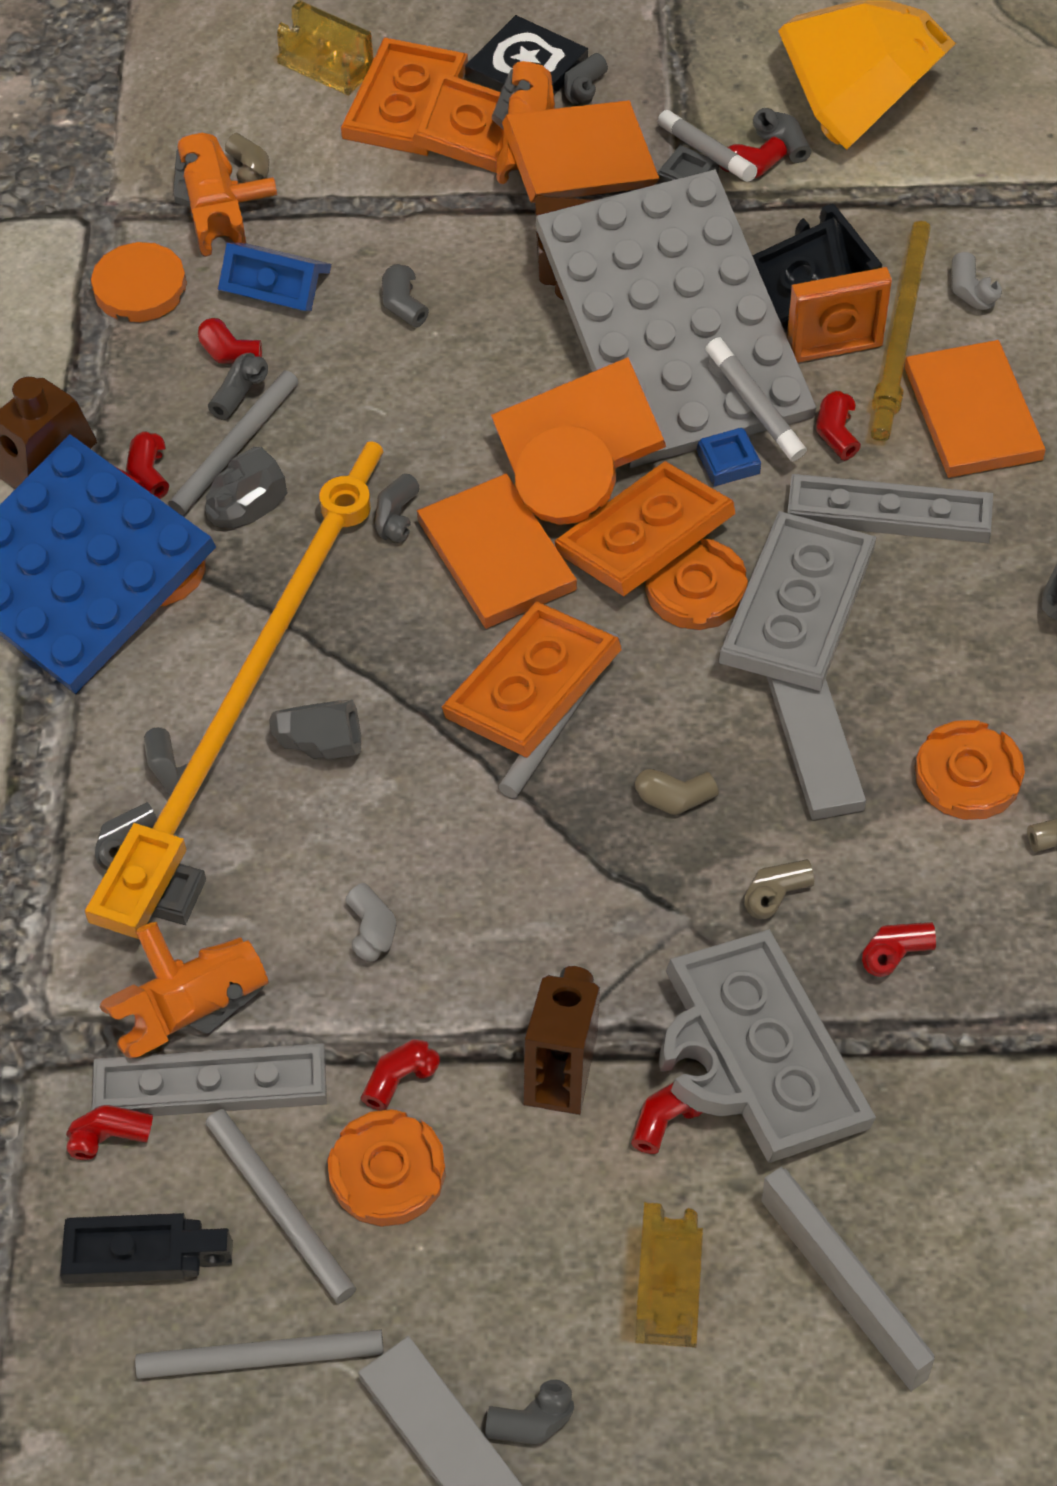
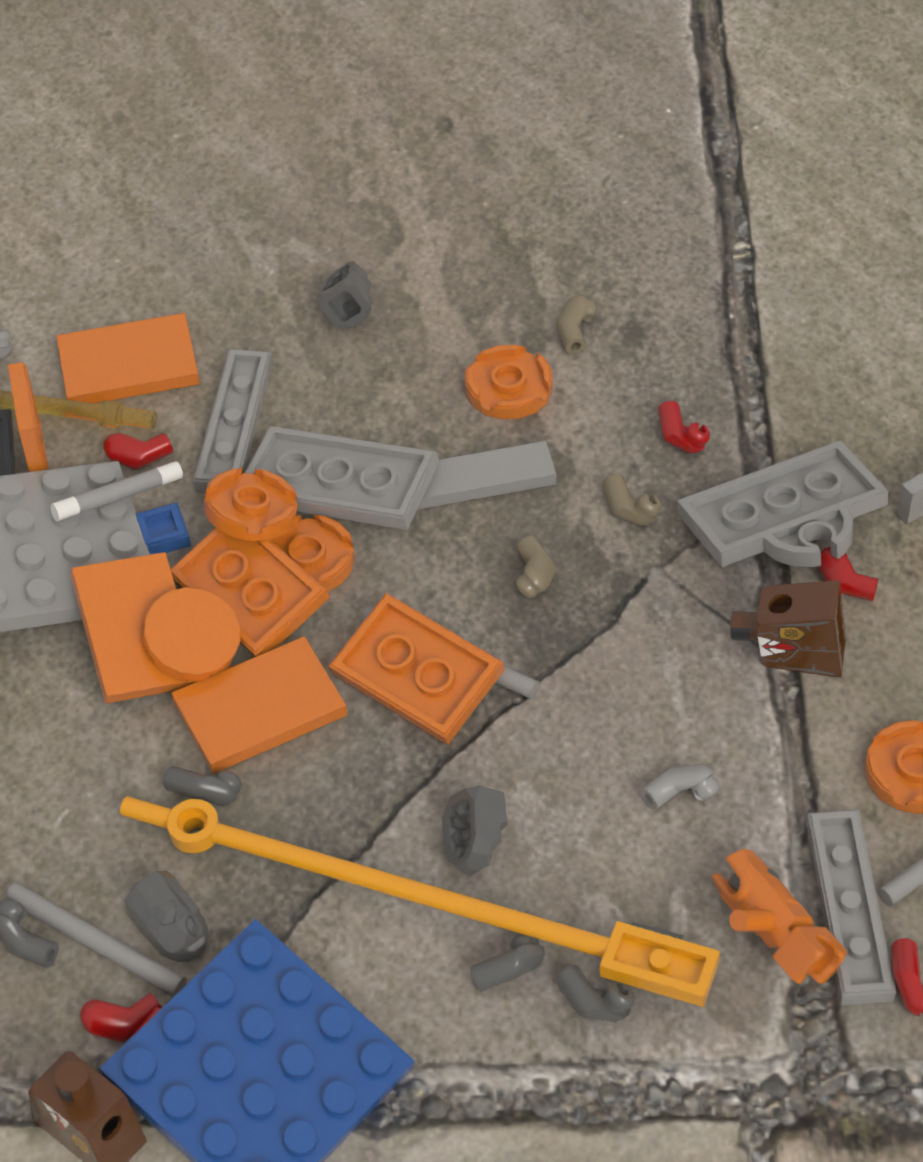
camera: 90 degrees left, 5 degrees down
(395, 1065) = (823, 761): red arm -> none
(734, 509) = (250, 504): none -> orange tile

